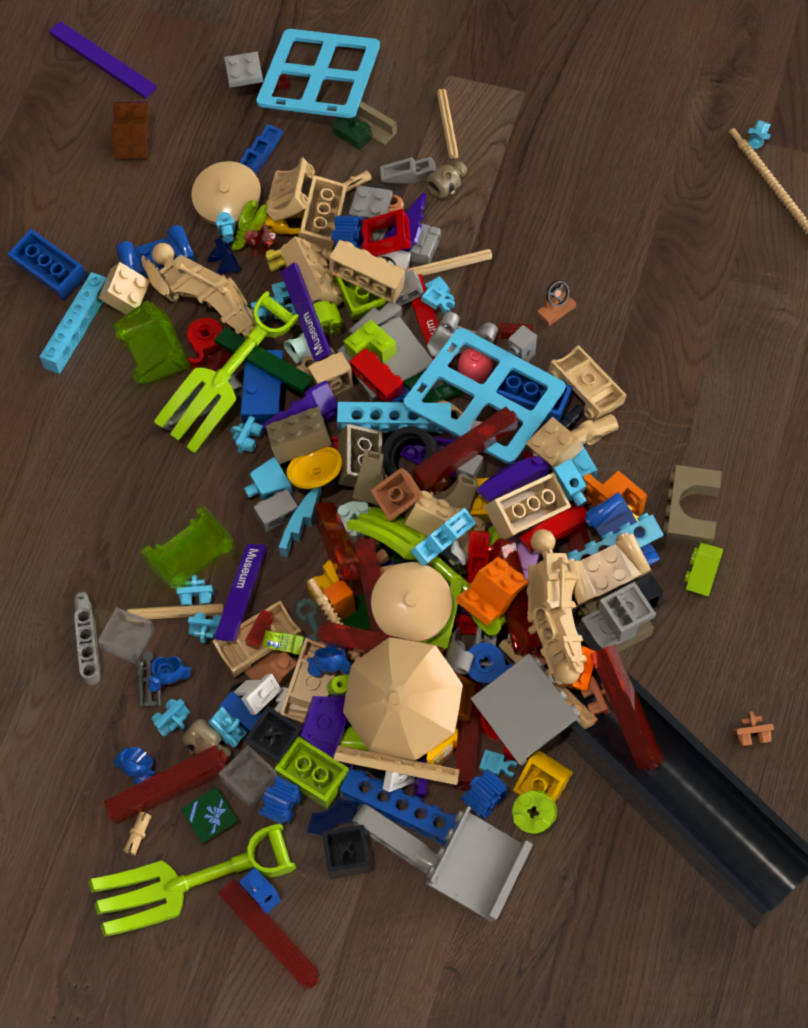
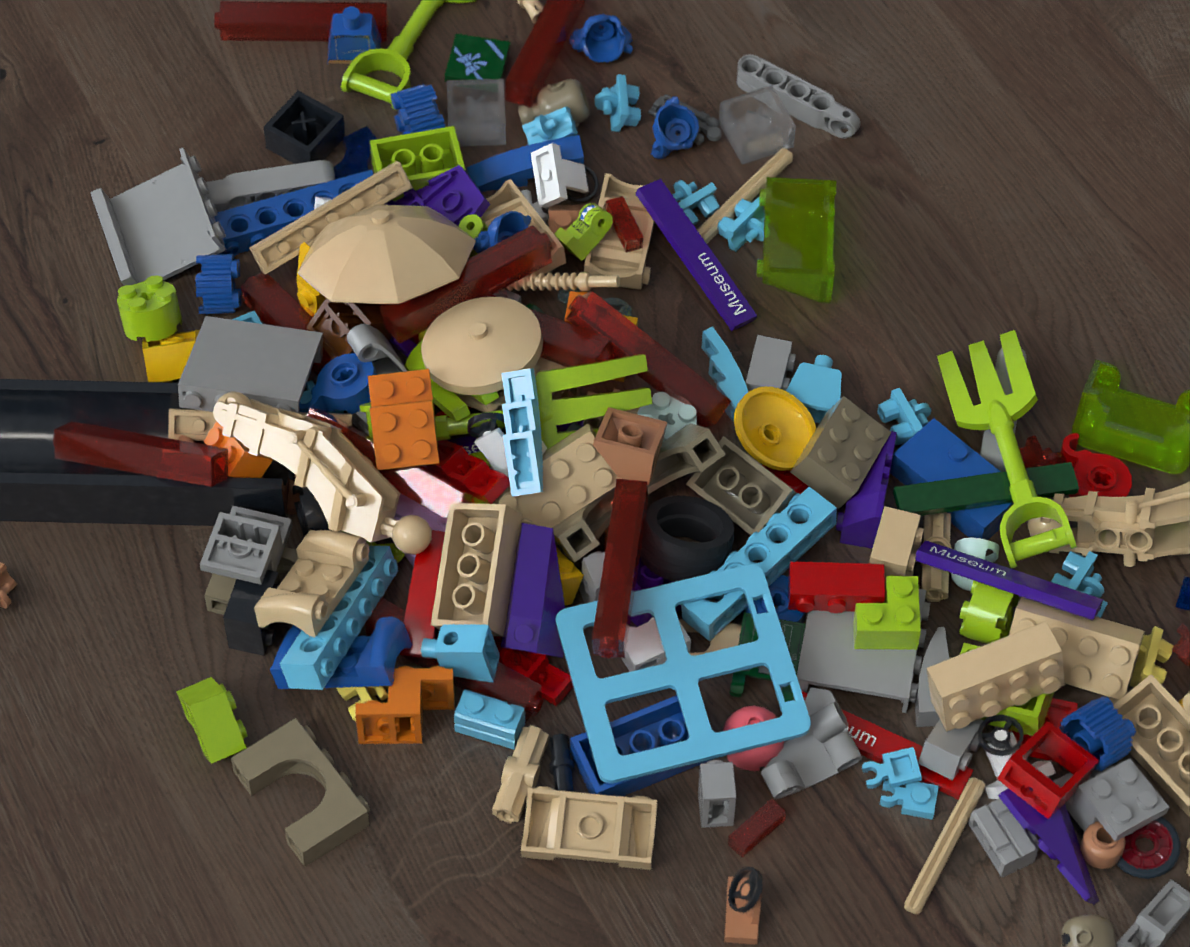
camera: 130 degrees right, 5 degrees down
(272, 735) = (491, 148): black brick -> none
(554, 444) = (530, 683): tan brick -> none

